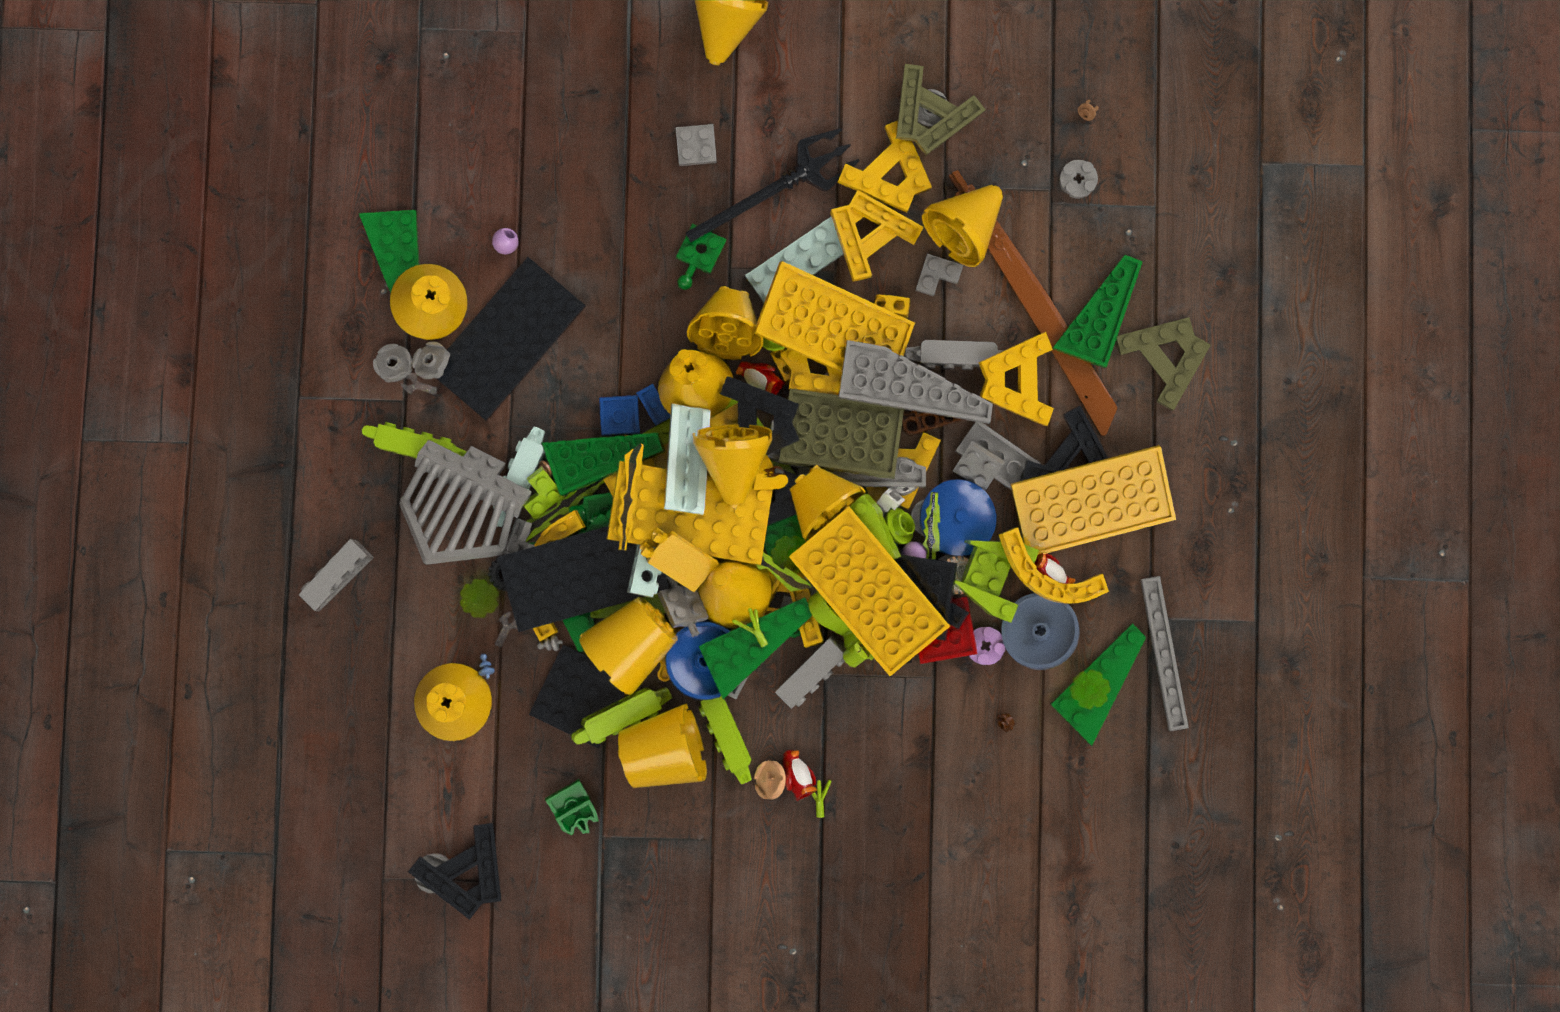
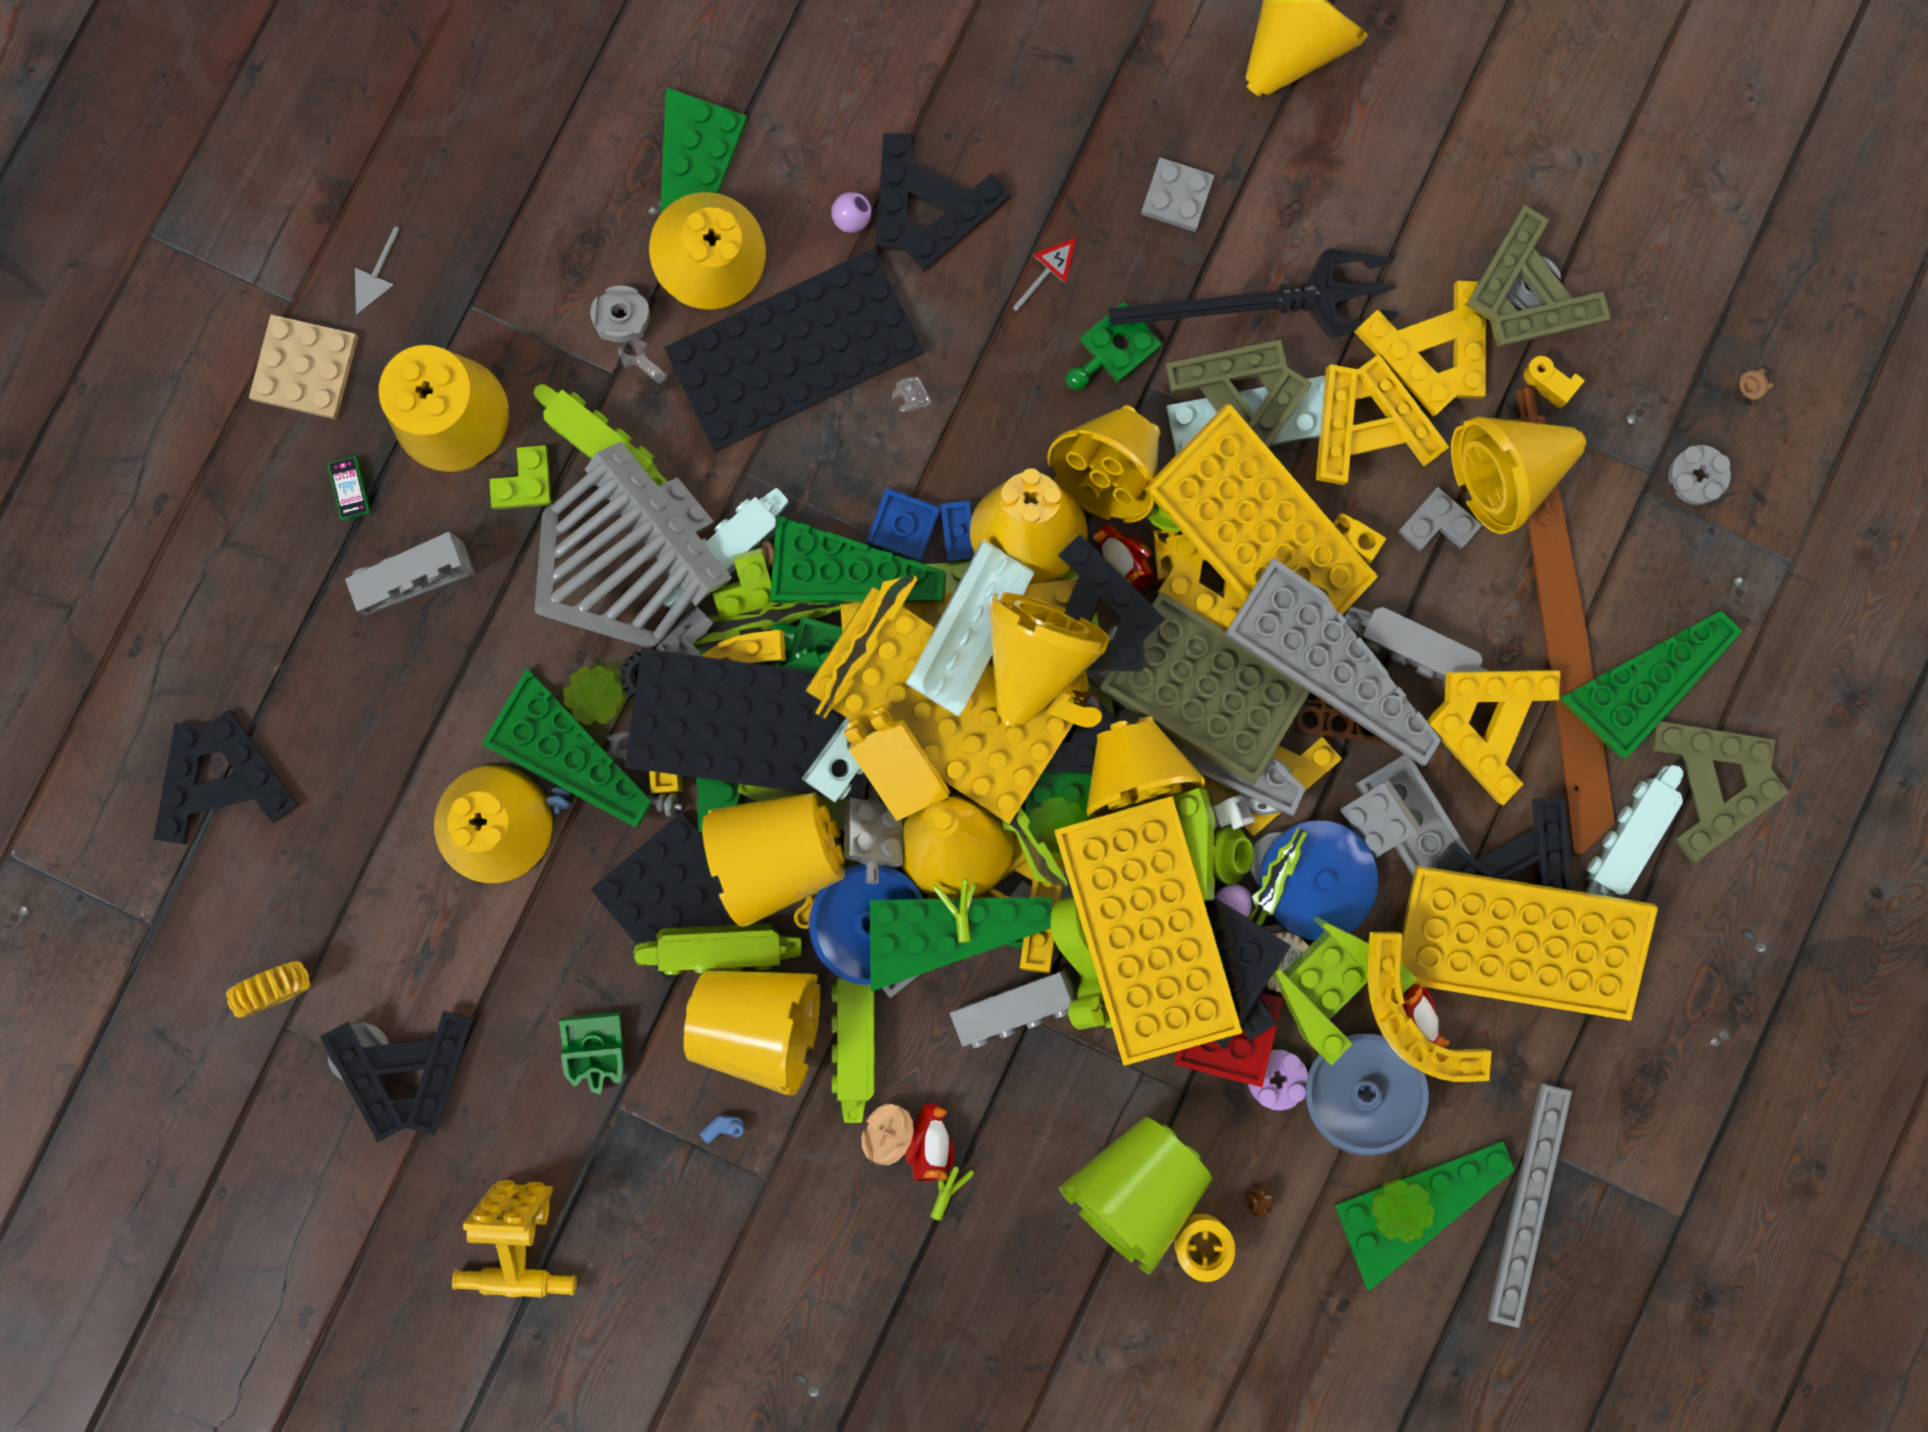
camera: 30 degrees right, 0 degrees up
(213, 478) = (303, 367): none -> tan plate
(232, 412) = (370, 287): none -> light grey piece
(258, 767) = (184, 795): none -> black plate
(275, 539) = (349, 488): none -> tile
(324, 474) = (454, 424): none -> yellow cone
(363, 858) = (268, 989): none -> yellow gear
(384, 490) = (530, 487): none -> lime plate
(436, 366) = (673, 347): light grey plate -> none
(465, 638) = (553, 745): none -> green wing
(570, 209) = (962, 208): none -> black plate
(570, 928) = (509, 1220): none -> yellow plate
(590, 333) = (913, 394): none -> clear tile
(642, 216) = (1057, 261): none -> piece
(670, 818) = (723, 1125): none -> medium blue arm
(766, 243) = (1217, 371): none -> olive plate
(931, 746) = (1139, 1191): none -> lime cone
(966, 162) = (1550, 381): none -> yellow leg
(984, 762) = (1204, 1248): none -> yellow hat
(1132, 408) = (1636, 835): none -> light aqua hinge

